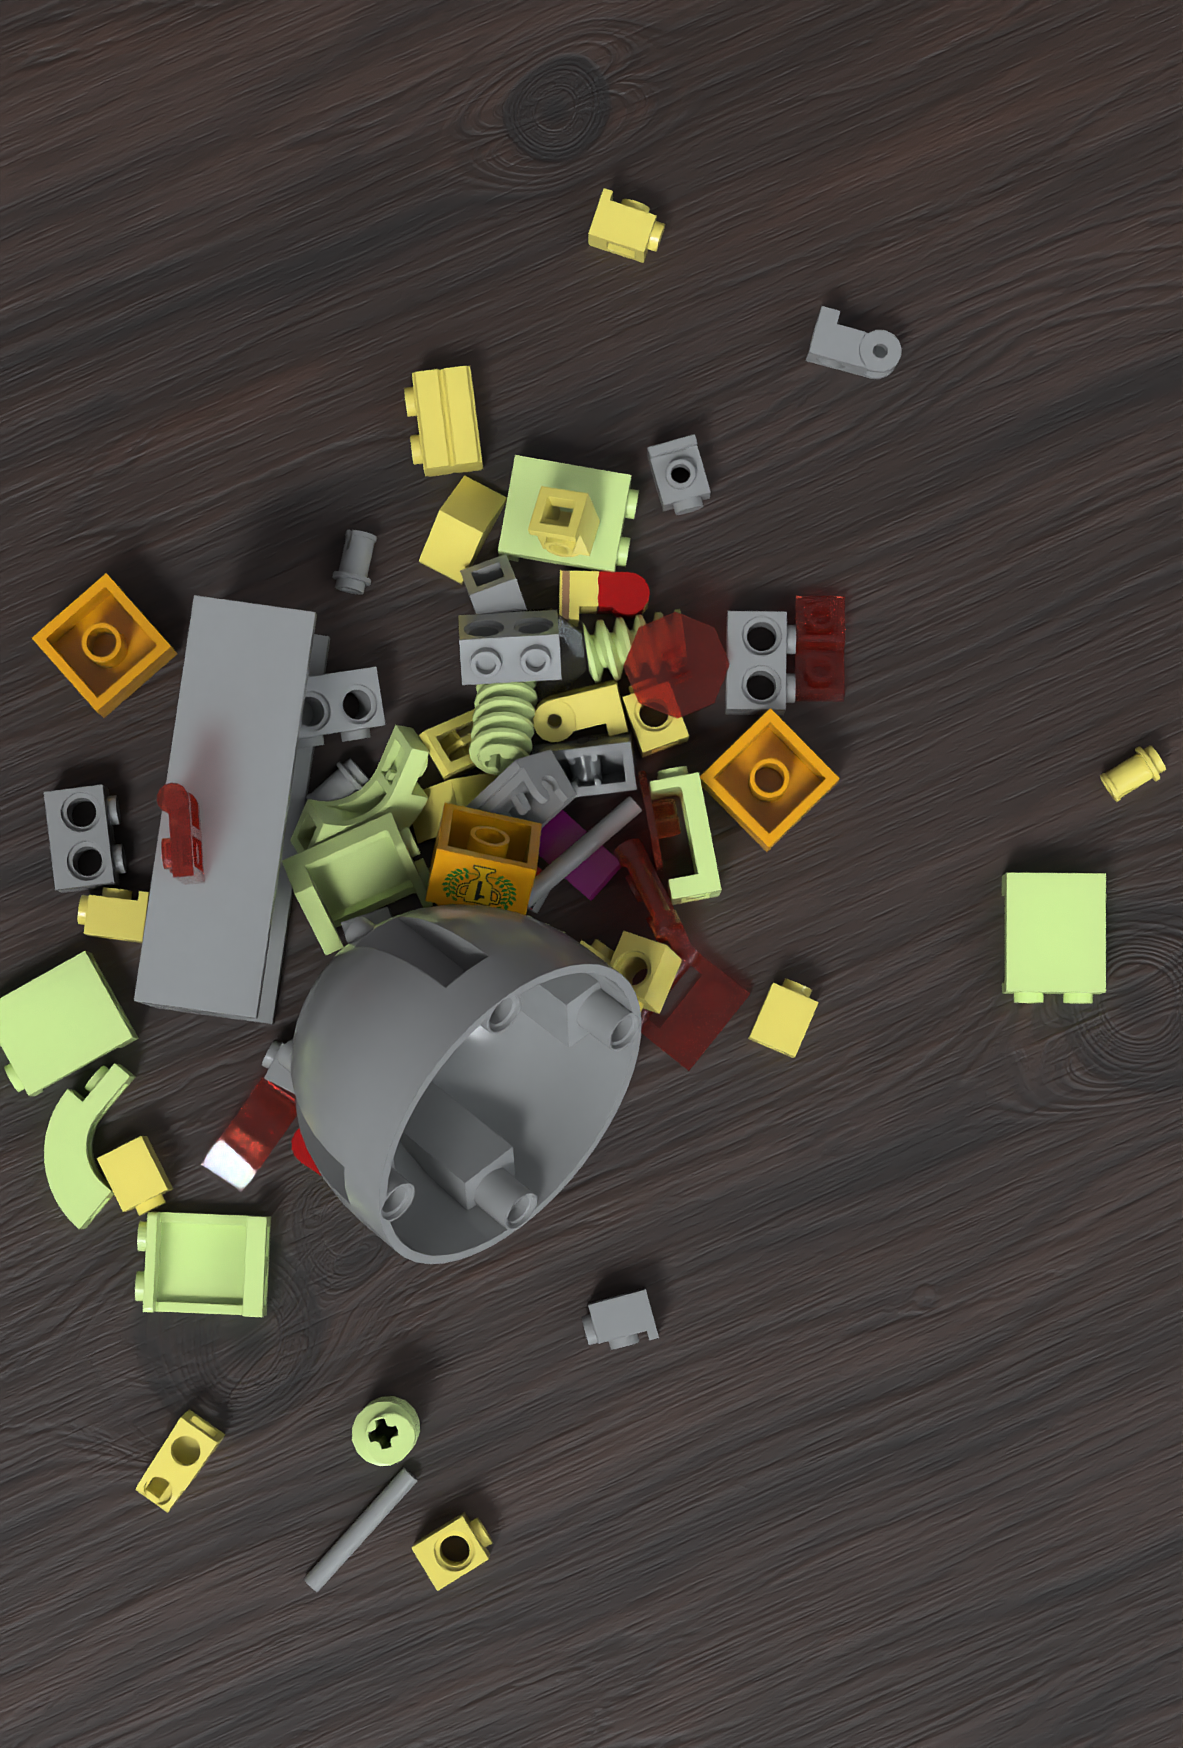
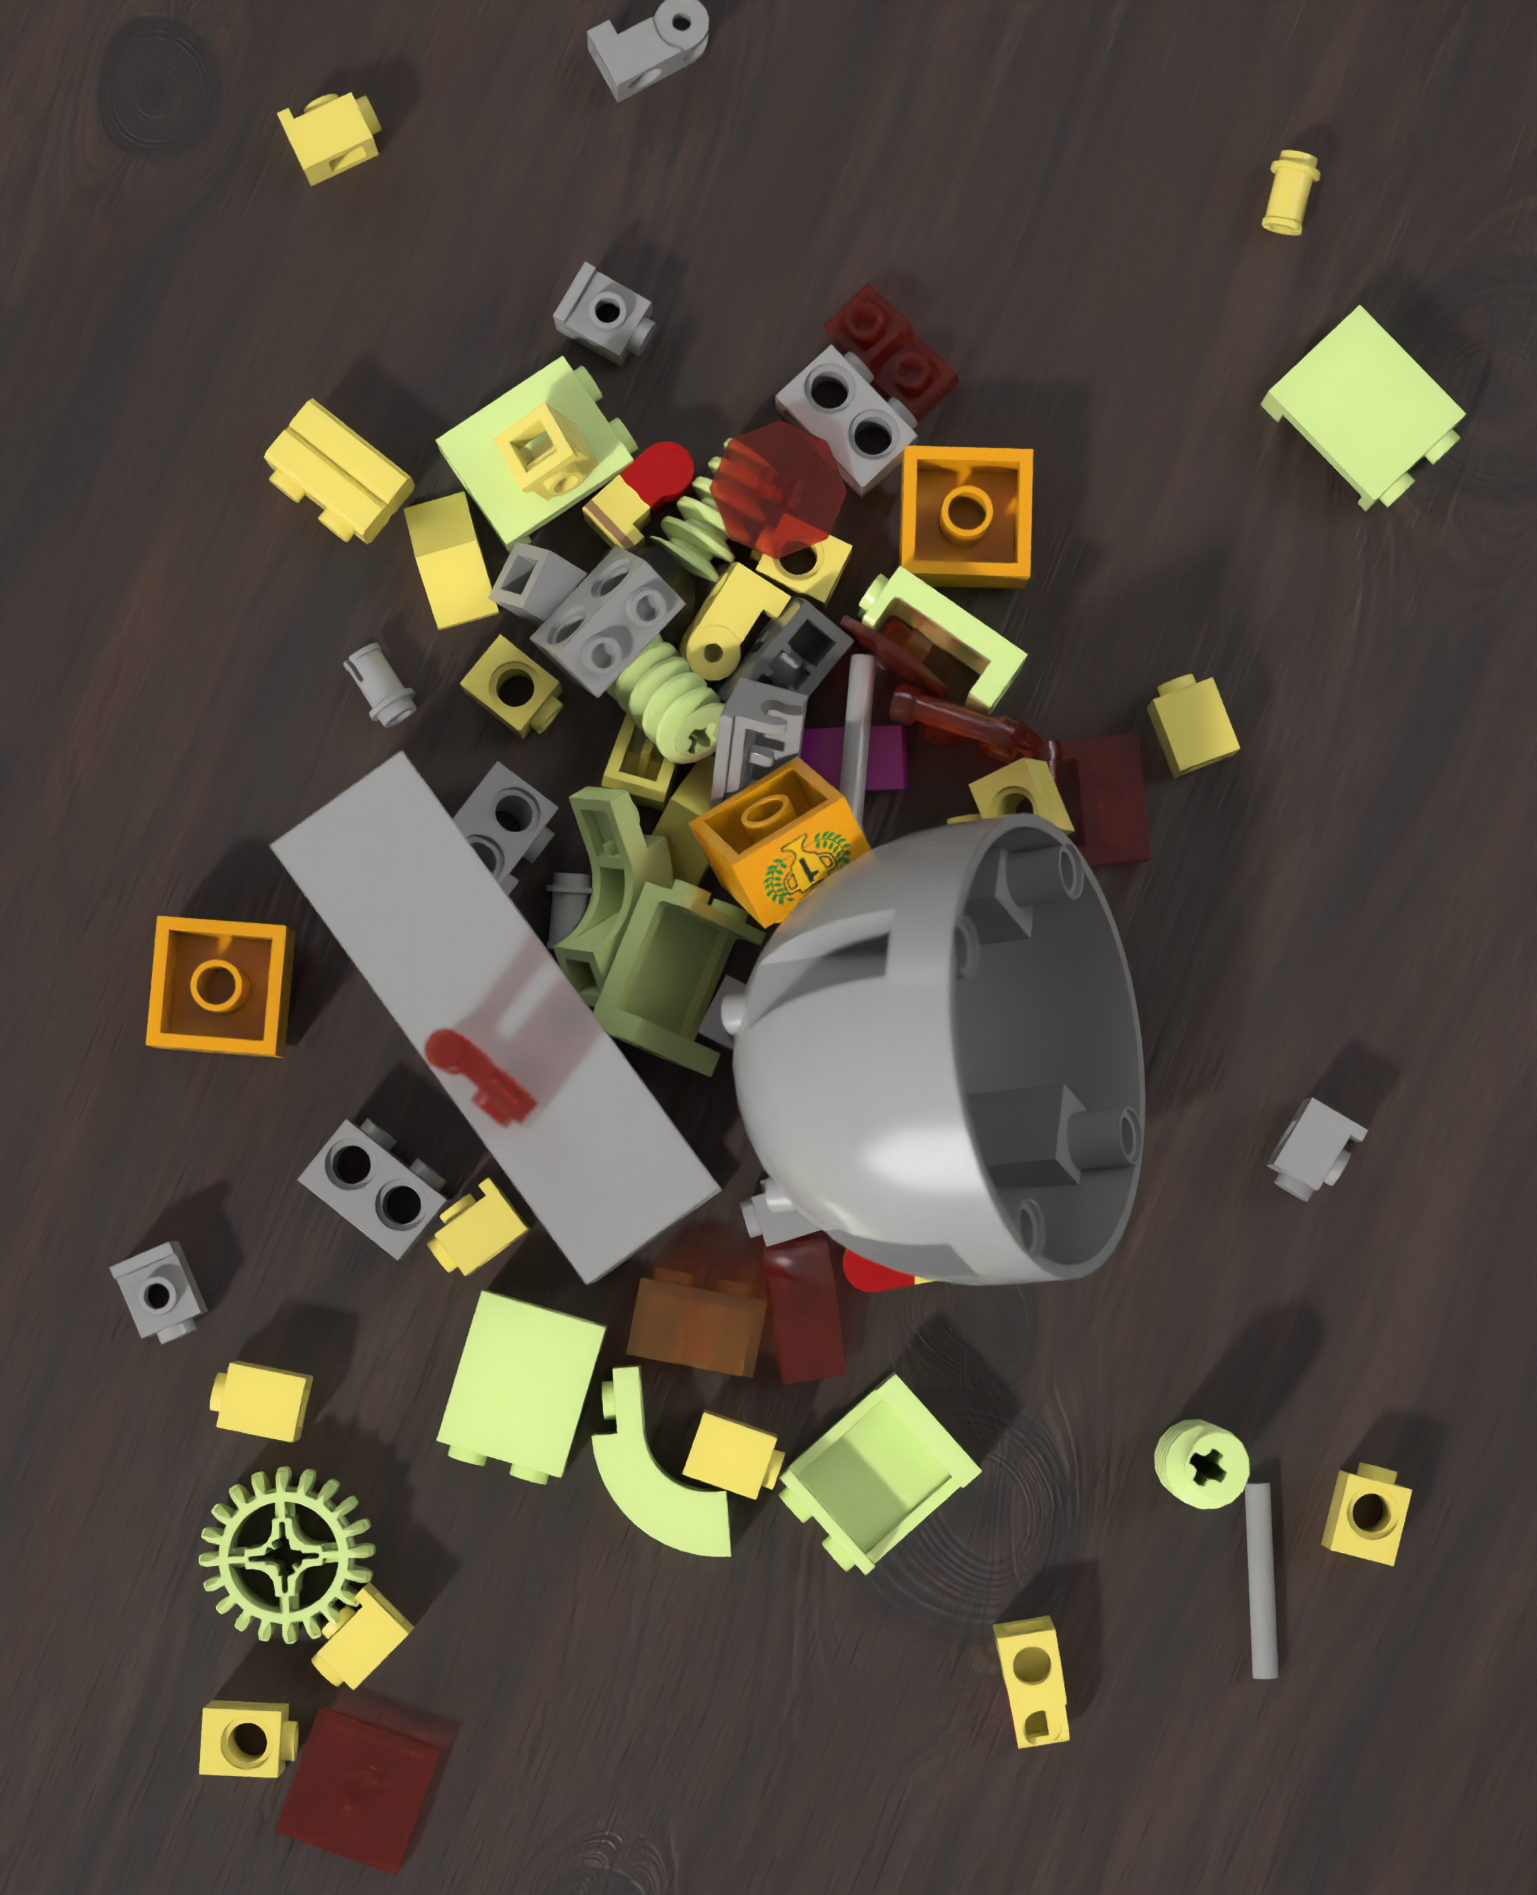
camera: 50 degrees left, 0 degrees up
(185, 1084) = (697, 1324): none -> clear orange brick
(426, 613) = (496, 666): none -> light yellow brick

